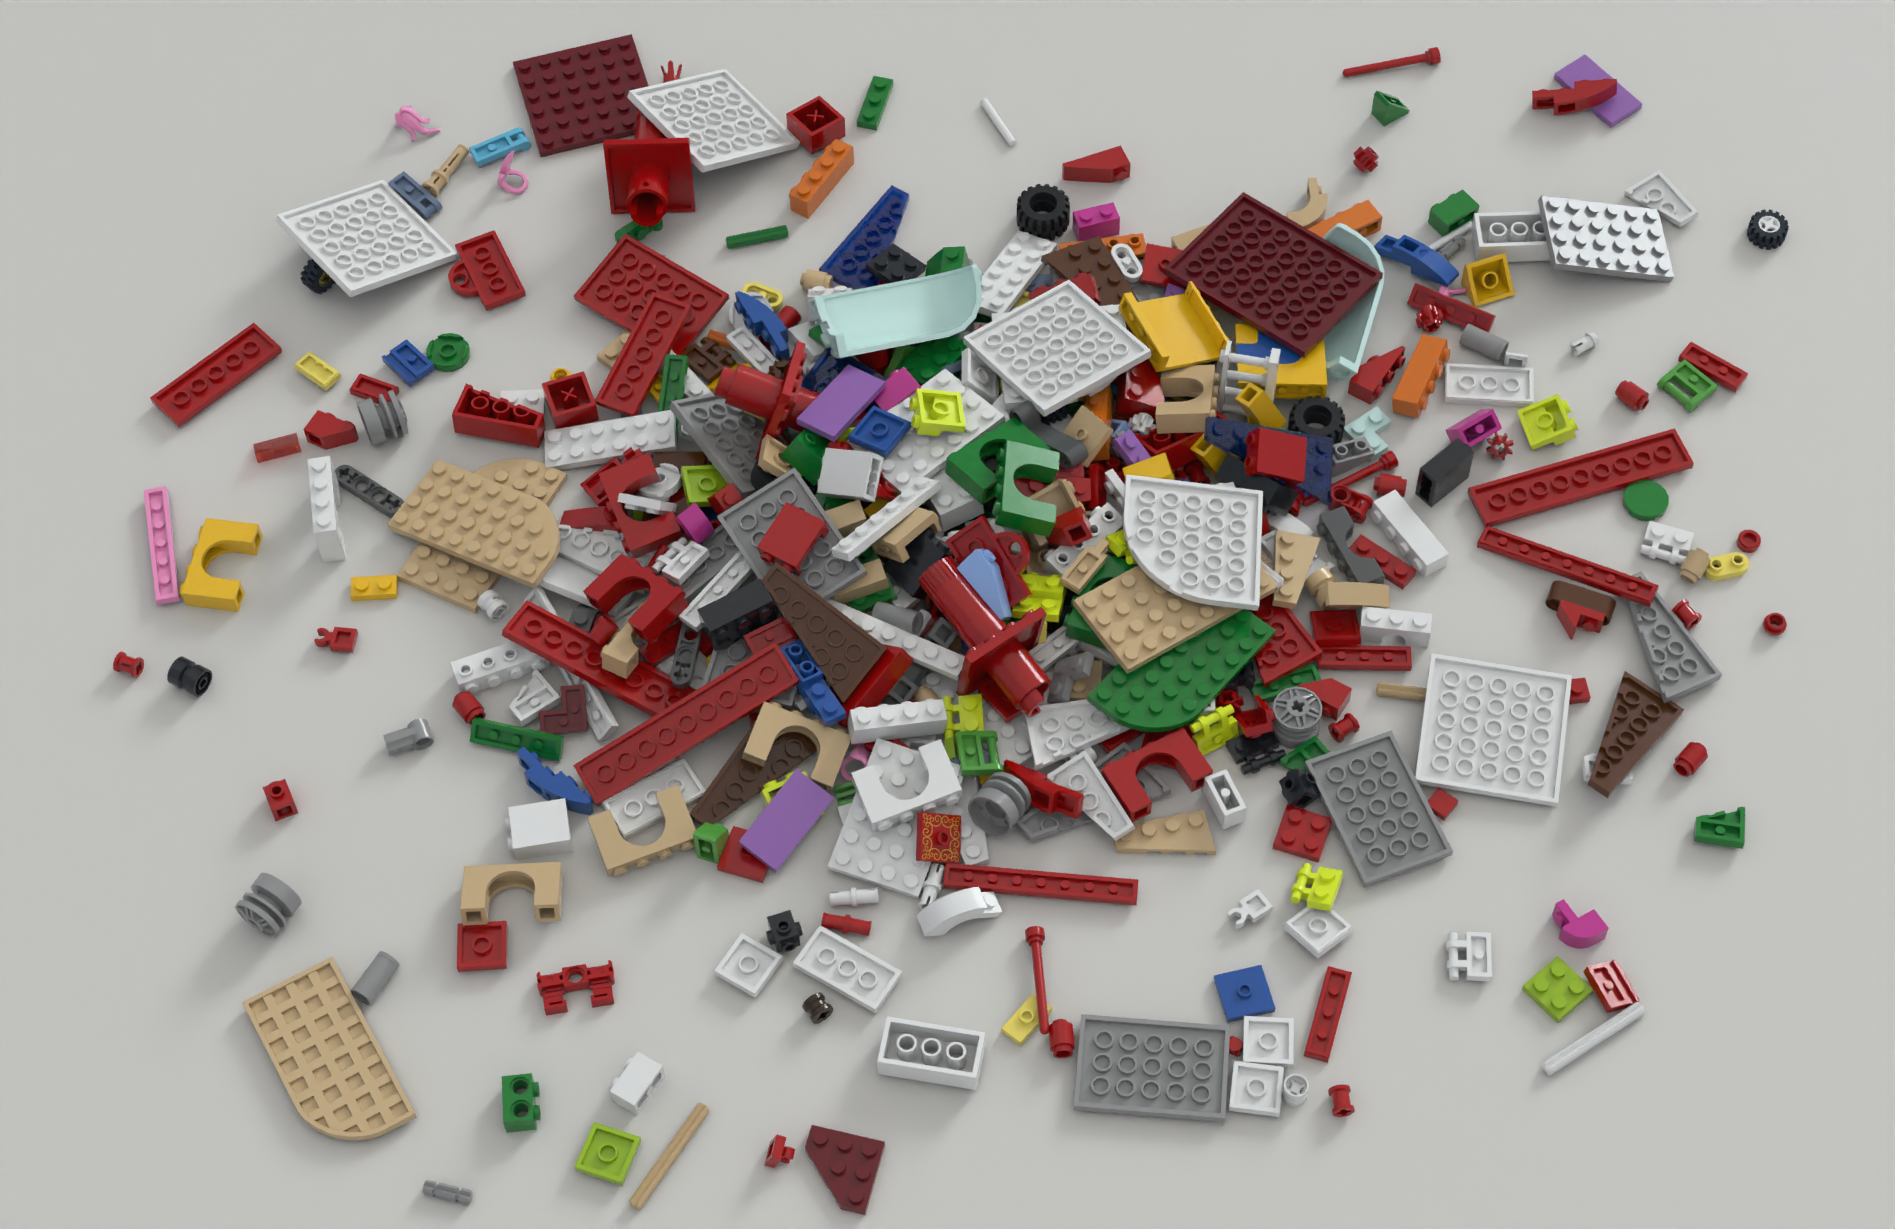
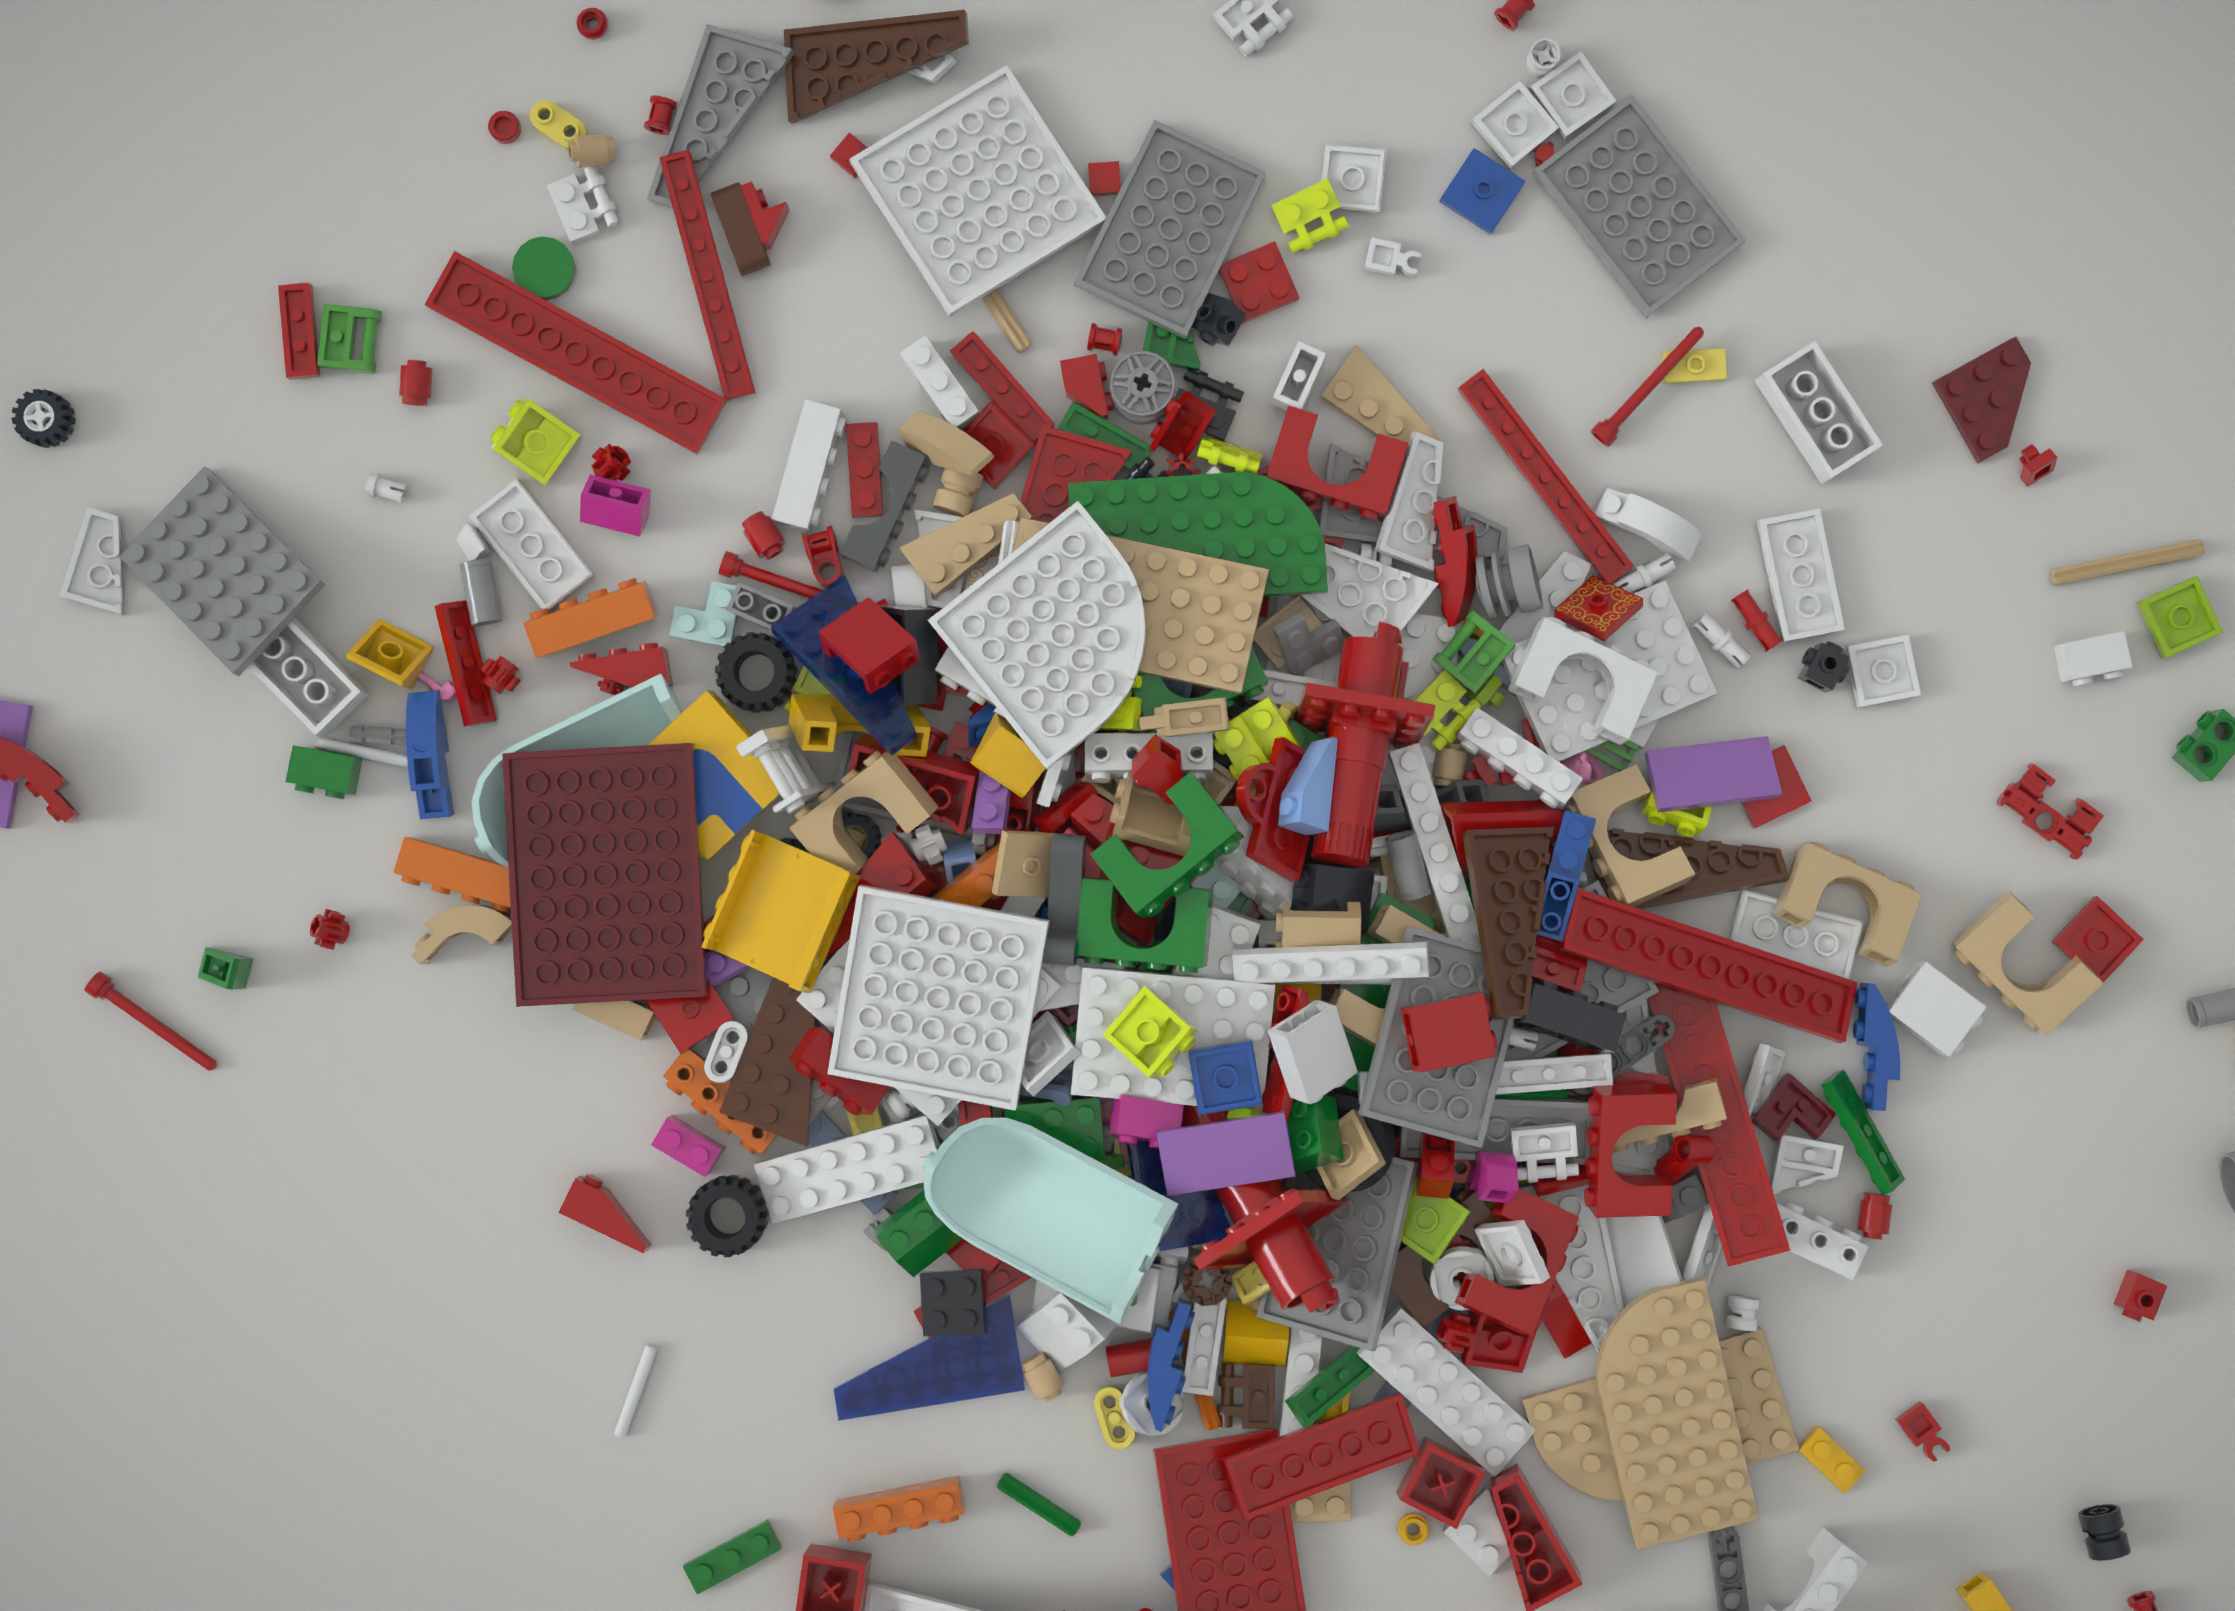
camera: 135 degrees left, 30 degrees up
(416, 736) = (1955, 1239): light grey piece -> none
(710, 841) = (1797, 827): bright green slope -> none
(817, 1008) = (1866, 564): dark brown wheel -> none
(1061, 1038) = (1687, 312): red brick -> none
(1327, 1014) = (1432, 98): red tile -> none
(1444, 472) = (702, 486): black brick -> none

